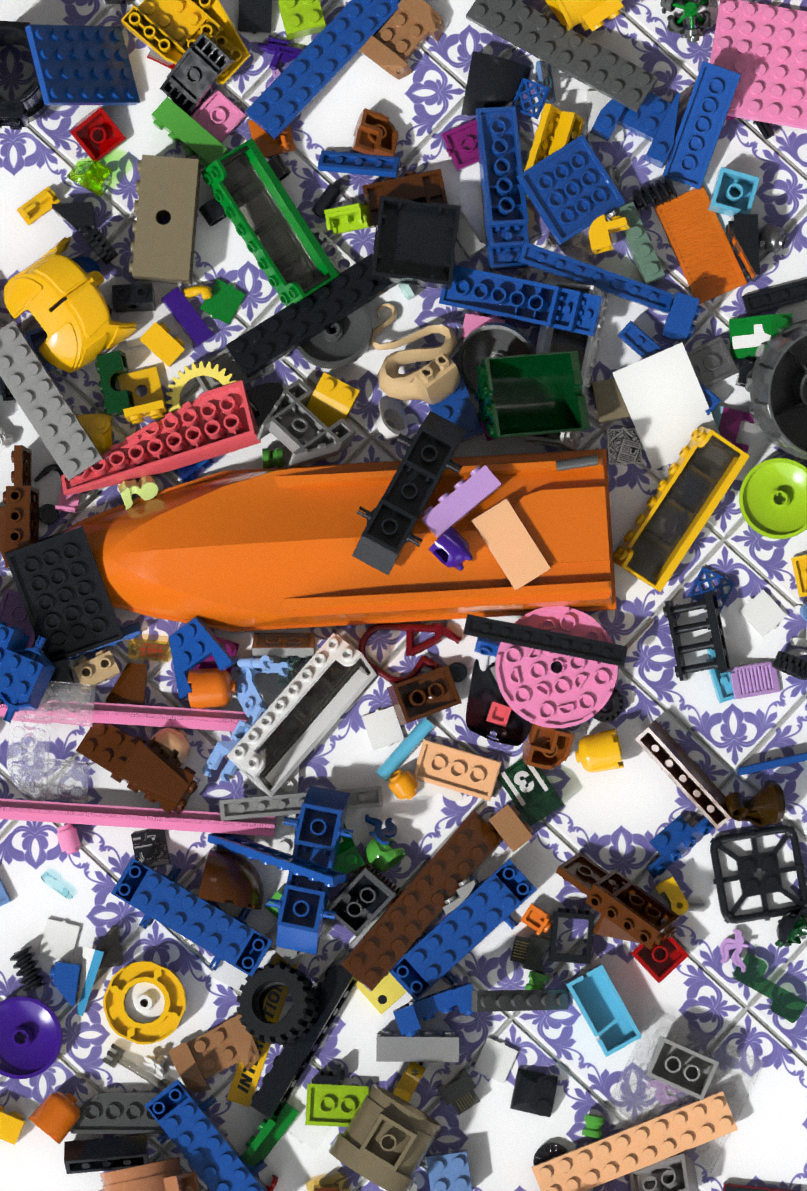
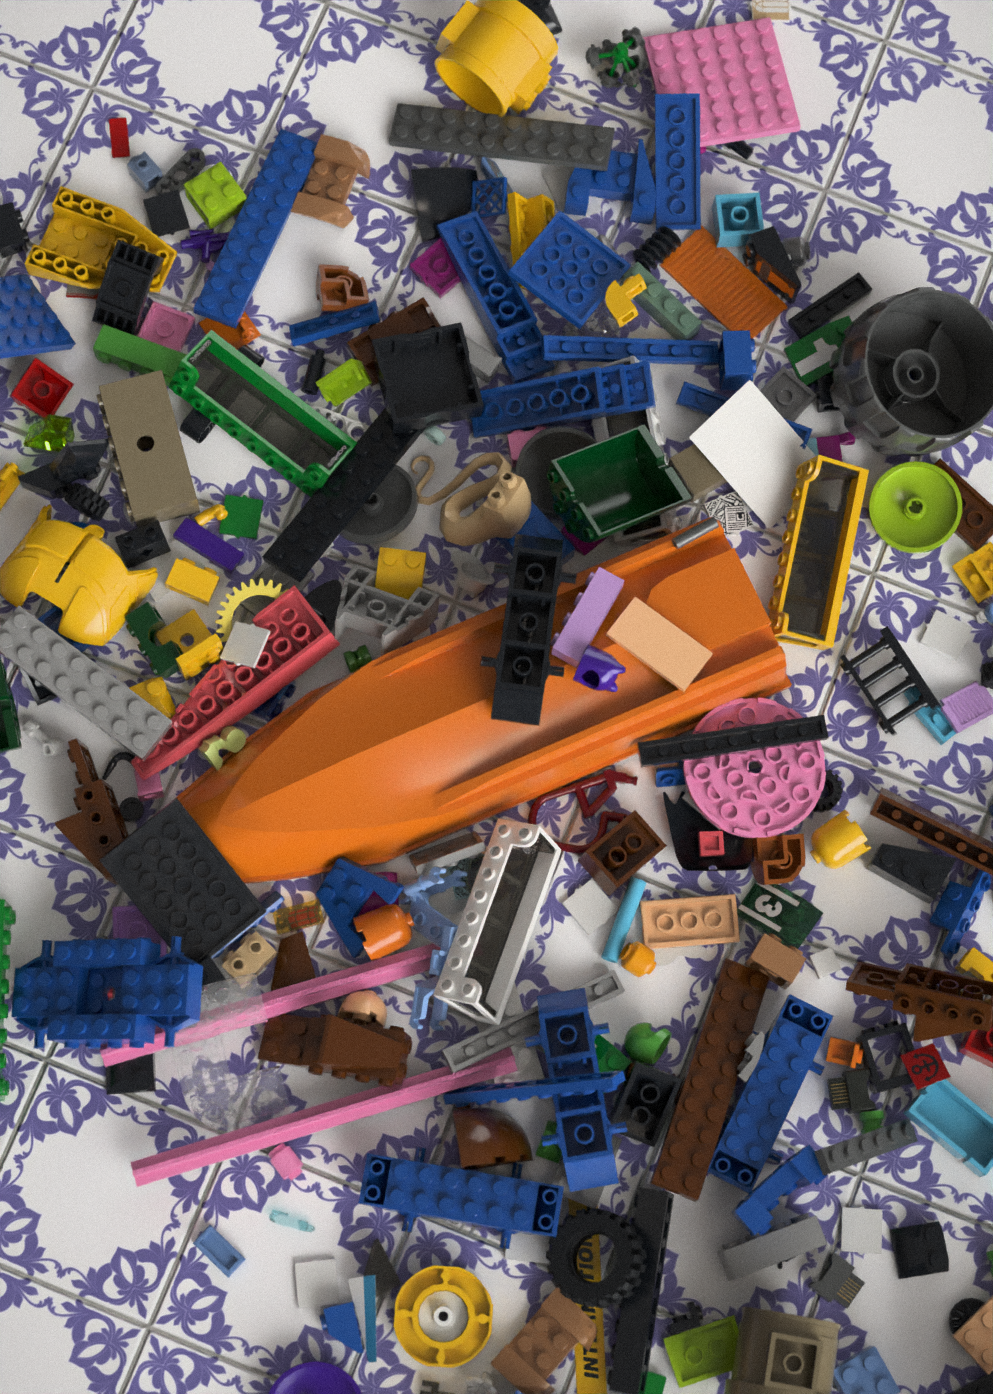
camera: 25 degrees left, 10 degrees down
(27, 969) = (293, 1331): black piece -> none
(105, 211) = (79, 460): none -> black slope
(151, 848) = (383, 1136): piece -> none
(184, 415) = (245, 644): none -> white piece
(379, 833) = (637, 1022): blue piece -> none
(384, 994) = (711, 1202): light yellow tile -> none
(409, 1081) = (776, 1289): yellow leg -> none
(458, 671) = (649, 814): black plate -> none
(552, 843) = (825, 962): none -> white tile
(594, 955) = (925, 1066): none -> red sticker
(651, 796) = (912, 870): none -> black wedge
(718, 577) = (884, 614): blue window -> none

